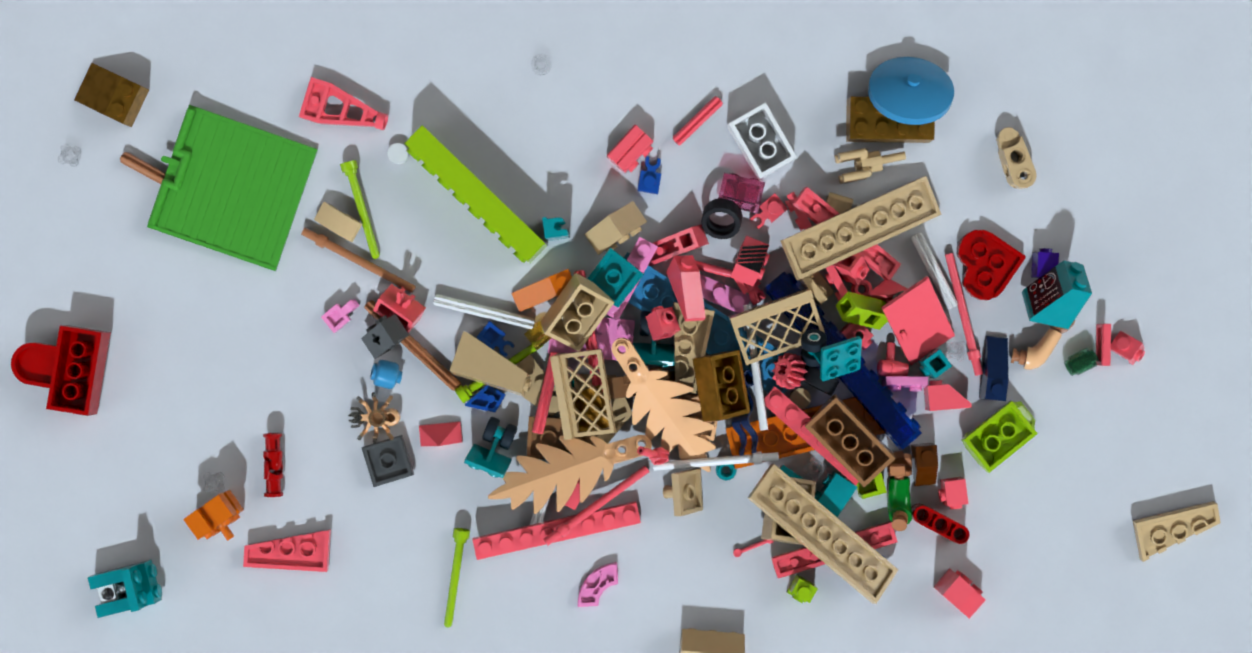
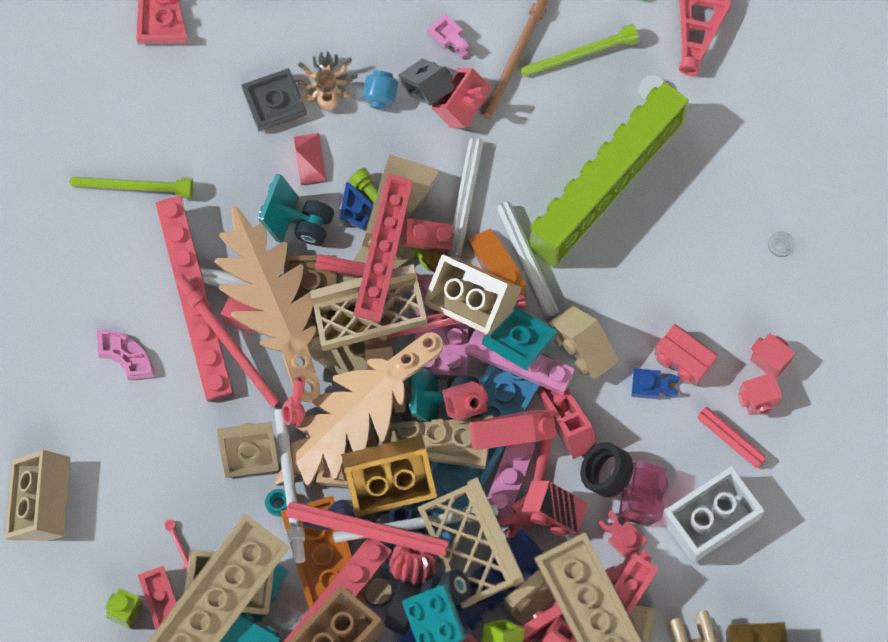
camera: 85 degrees right, 20 degrees down
(338, 222) = (562, 26): tan slope -> none
(422, 354) = (403, 134): nougat axle -> none
(493, 337) = (434, 207): blue plate -> none
(520, 344) = (426, 235): none -> coral plate
(536, 380) = (383, 248): none -> coral plate
(541, 265) = (528, 260): none -> white axle
(552, 229) = (574, 264): teal hinge -> none
(634, 82) = (772, 354): none -> coral brick
(666, 95) = (760, 394): none -> coral brick
(762, 404) = (367, 529): none -> coral axle

